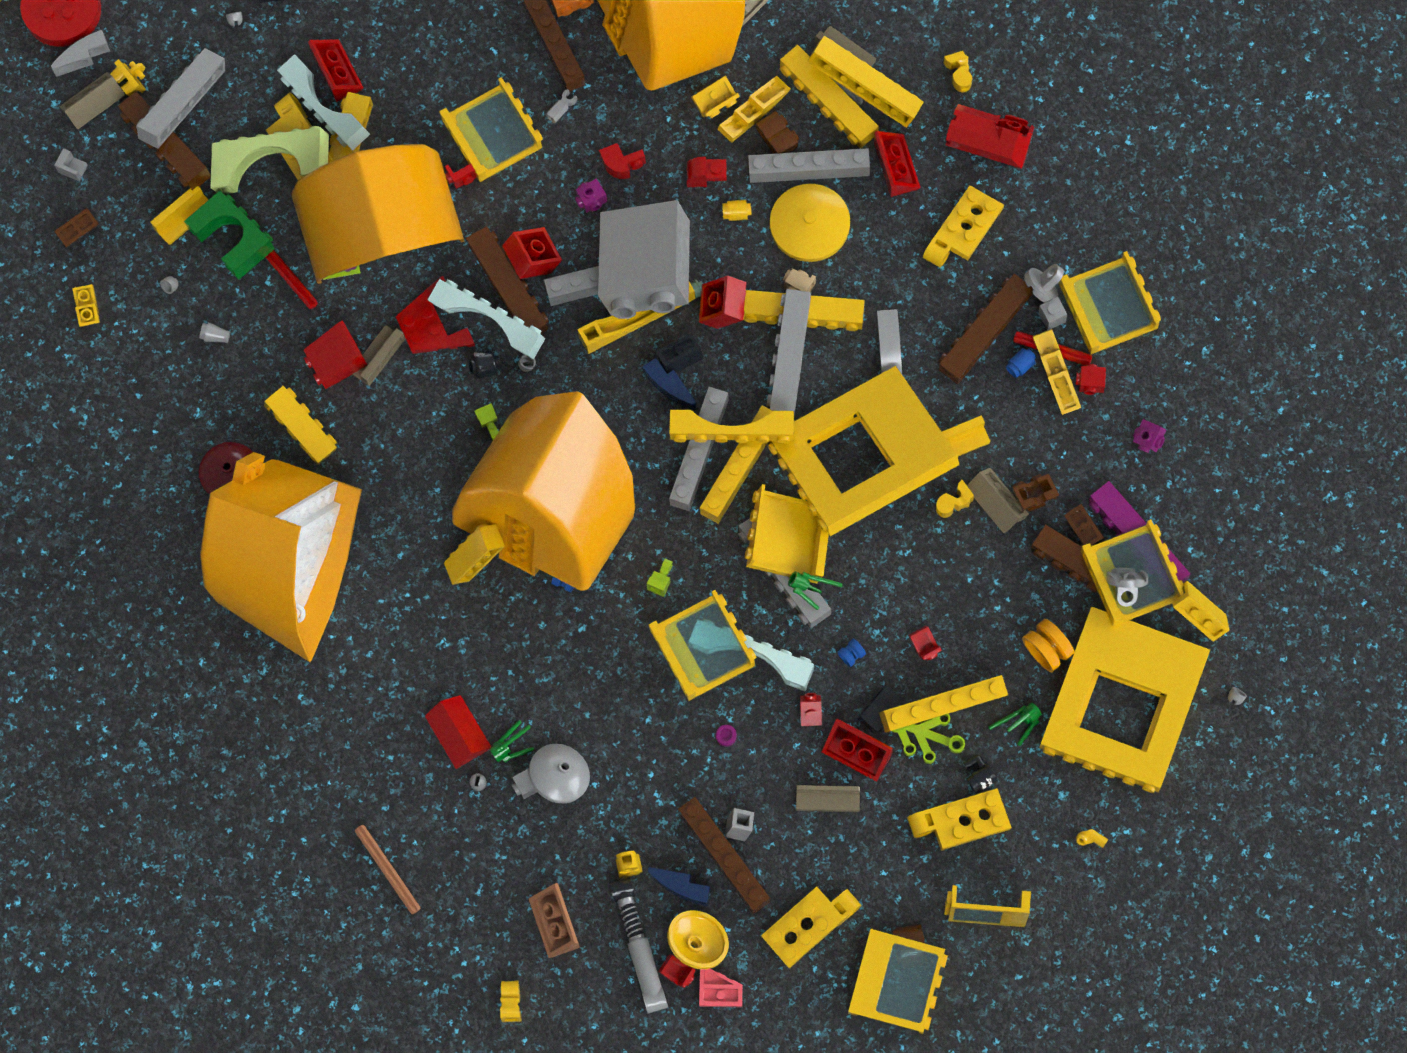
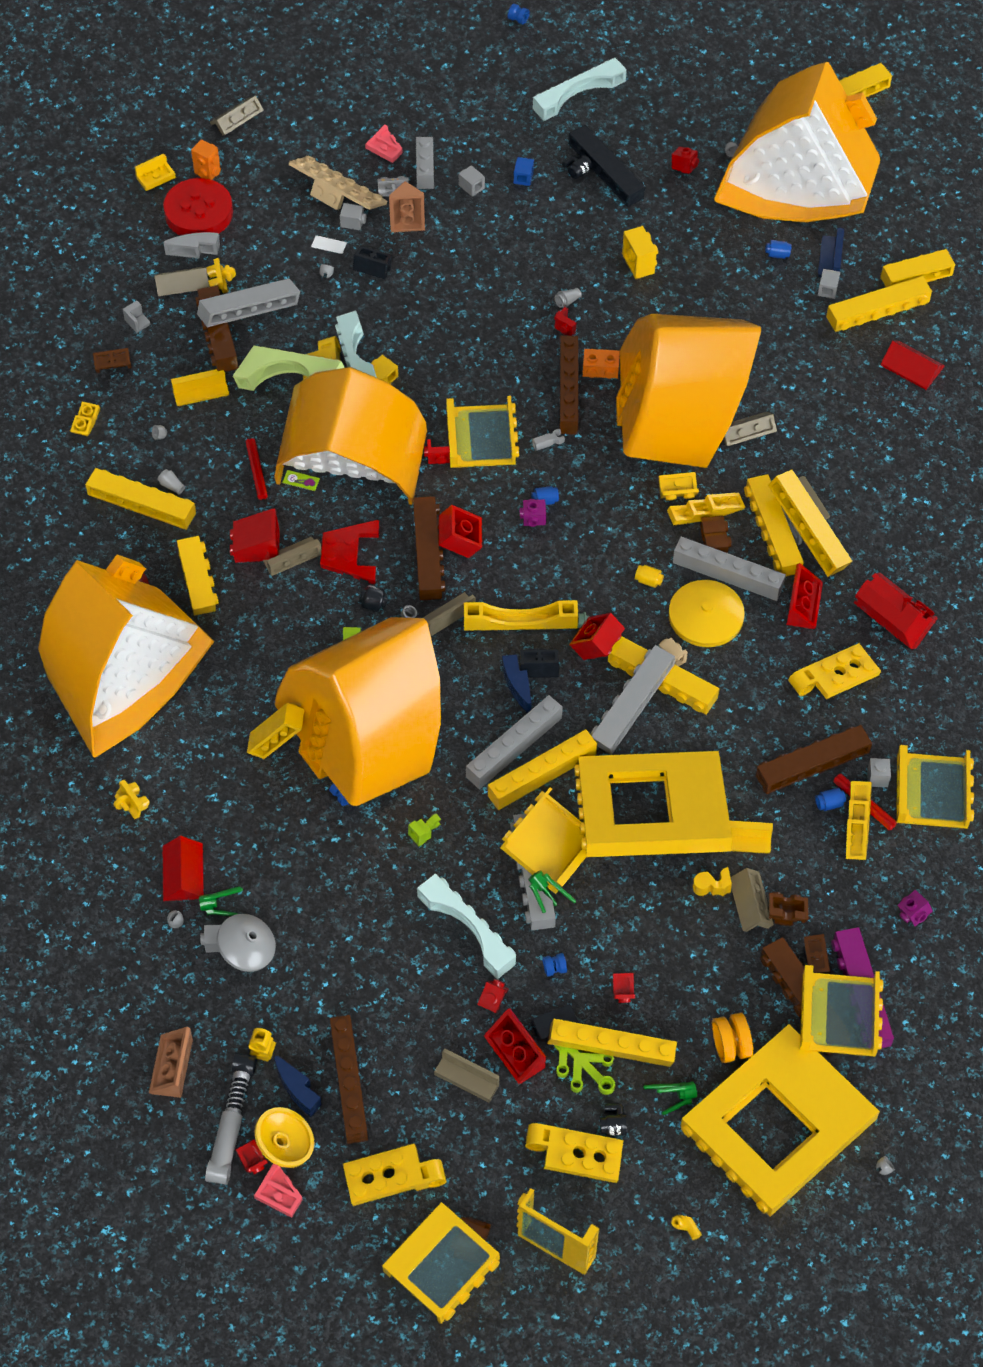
camera: 20 degrees right, 15 degrees down
(194, 367) = (141, 498): none -> yellow brick
(220, 212) = (229, 397): green arch -> none
(335, 67) = (383, 335): red slope -> none
(366, 687) = (127, 799): none -> yellow hips
(387, 869) = (57, 953): nougat axle -> none
(453, 300) = (375, 538): light aqua arch -> none
(509, 1001) = (96, 1106): yellow leg -> none
(562, 344) = (447, 613): none -> dark tan panel
(572, 286) = (483, 573): light grey brick -> none
(591, 170) = (548, 494): none -> blue brick
(619, 165) = (571, 501): red brick -> none
(644, 259) = (548, 571): light grey brick -> none
(702, 170) = (637, 533): red brick -> none
(703, 646) = (427, 896): clear light blue panel -> none
(726, 735) = (408, 982): magenta tile -> none
(739, 824) = (376, 1058): light grey brick -> none
(774, 427) = (585, 746): yellow arch -> none
(889, 339) = (725, 729): light grey slope -> none
(961, 77) = (897, 549): yellow leg -> none
(1044, 282) = (882, 744): light grey tile -> none
(1091, 379) = (886, 840): red brick -> none
(1126, 580) = (831, 1013): light grey tile -> none
(1201, 612) = (887, 1075): yellow panel -> none

